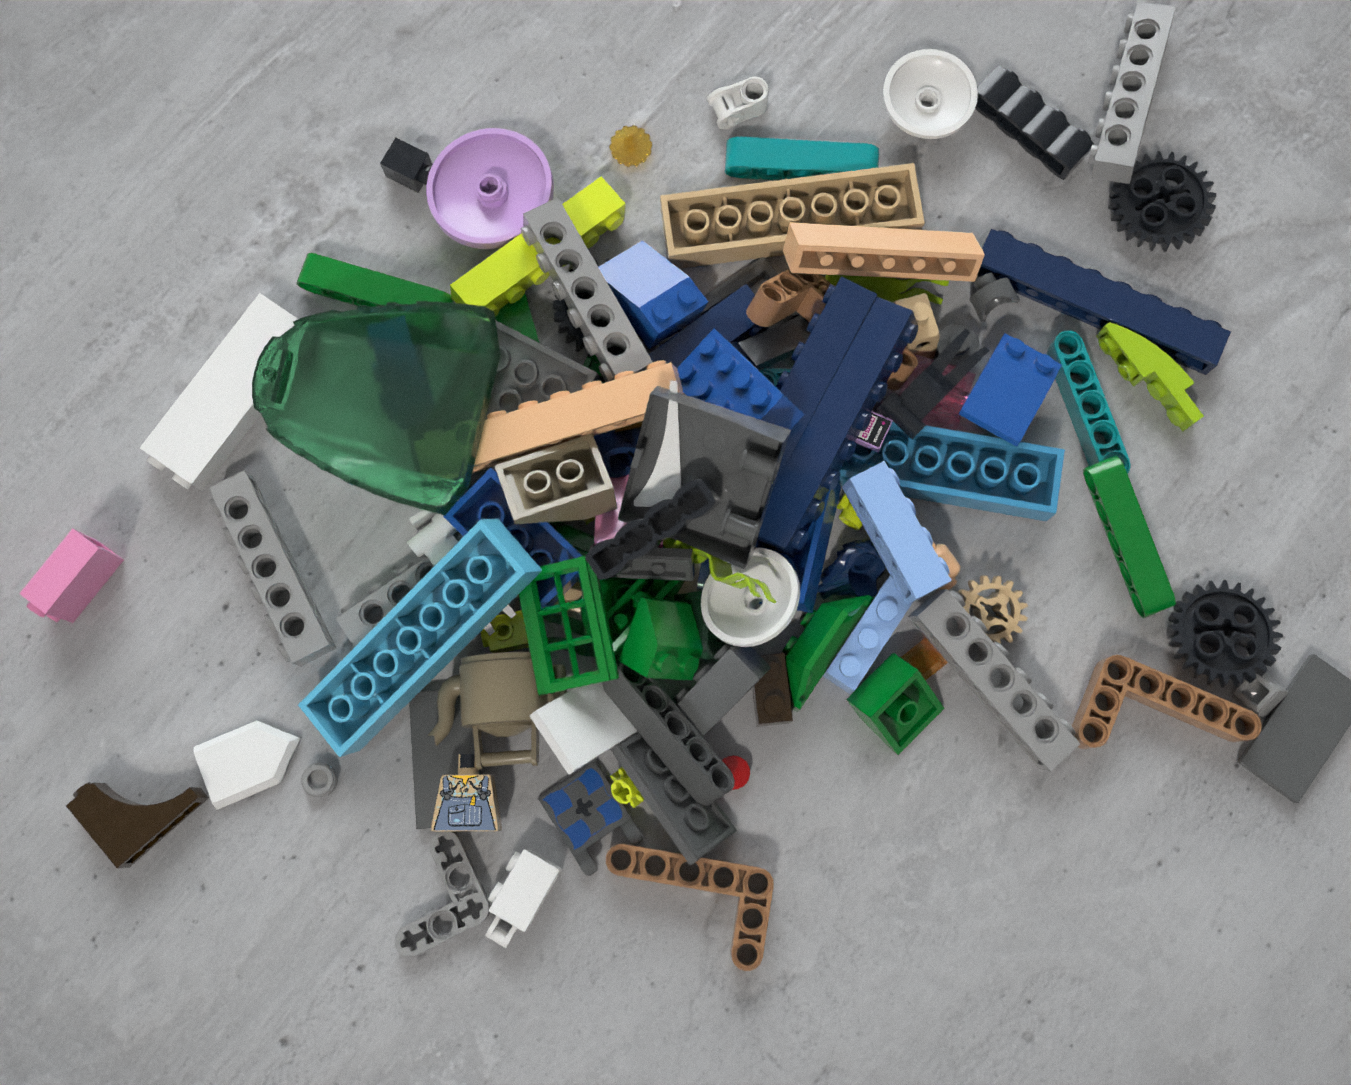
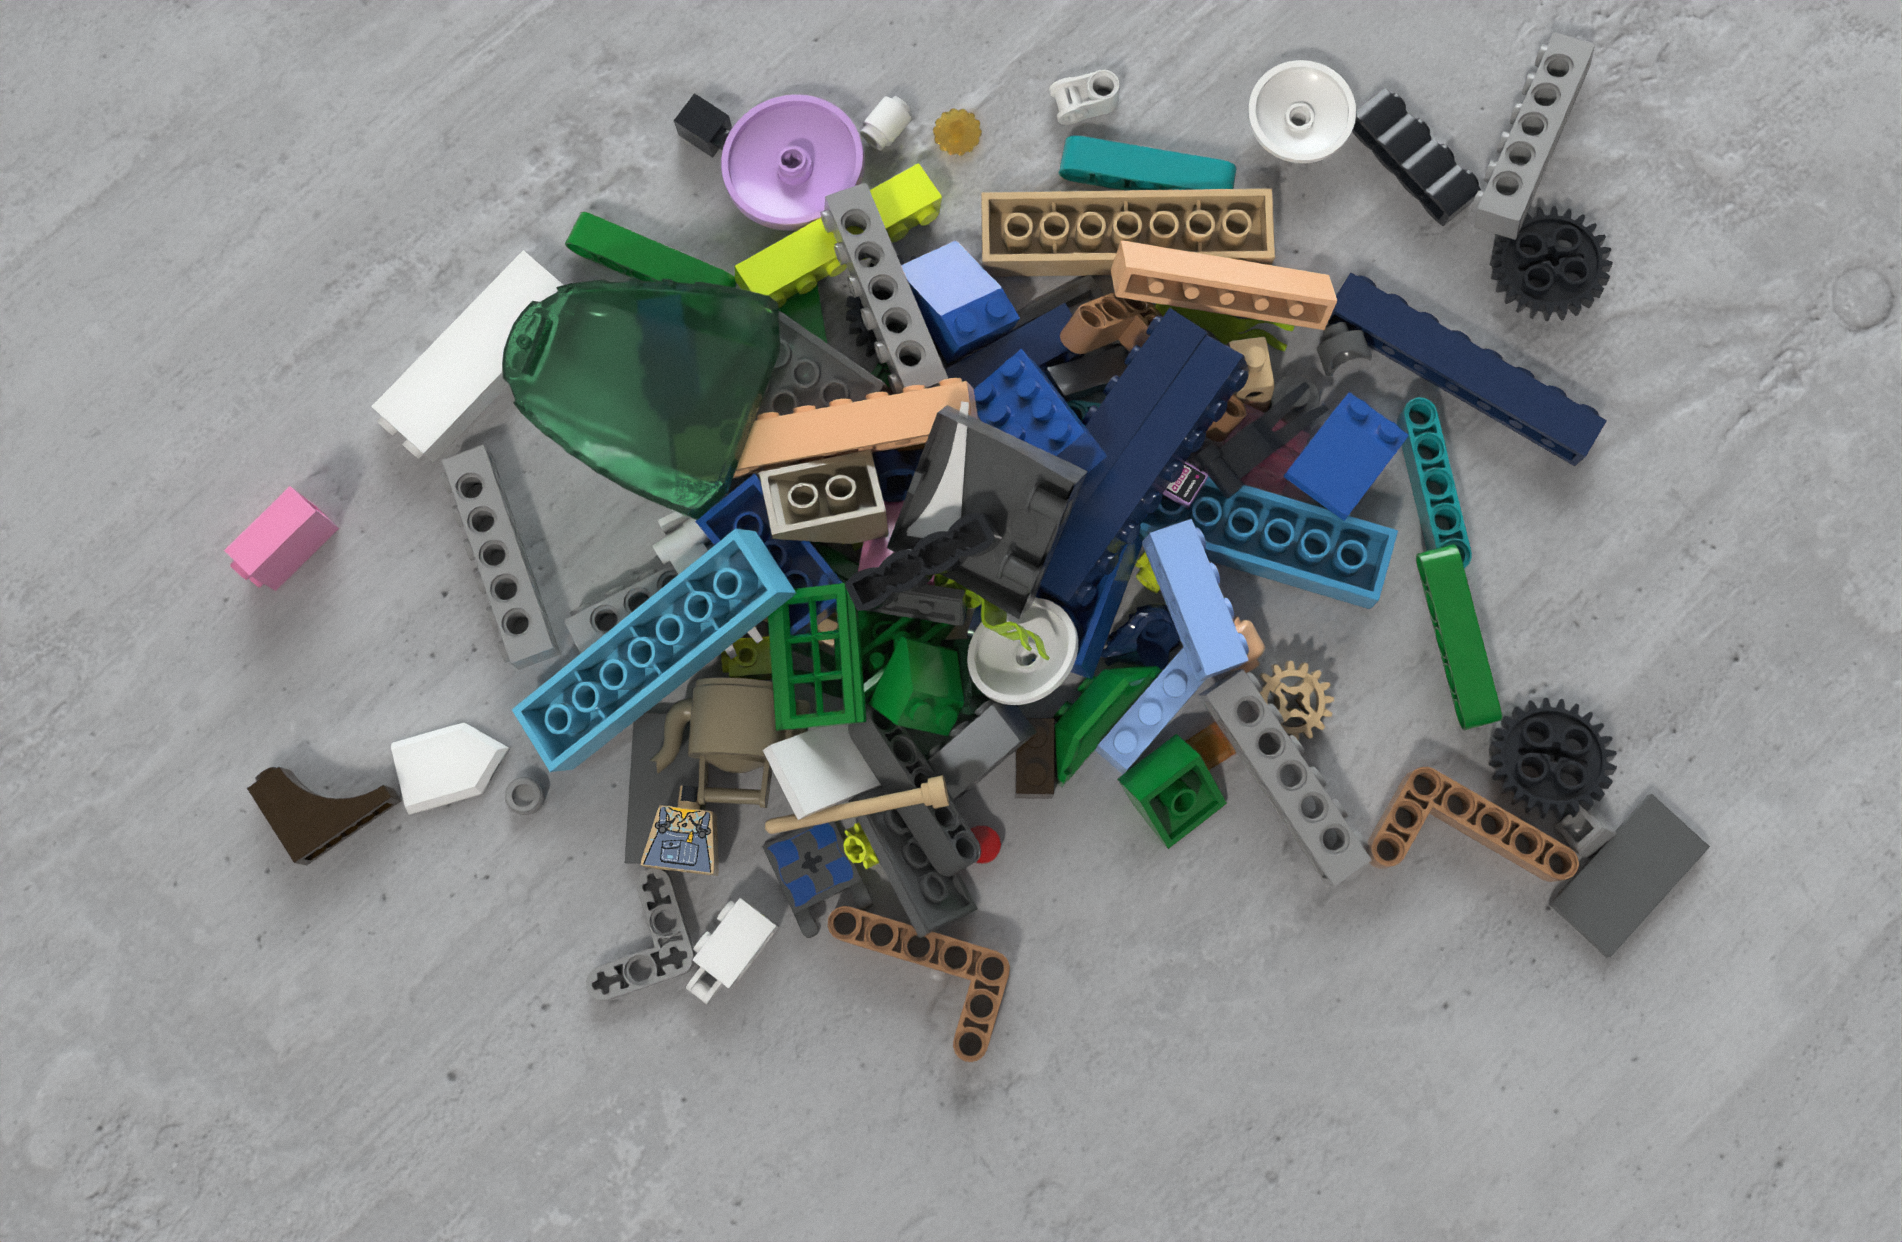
camera: 10 degrees right, 0 degrees up
(567, 144) = (886, 122): none -> white brick
(684, 734) = (931, 793): none -> tan piece
(1144, 361) = (1504, 442): lime slope -> none

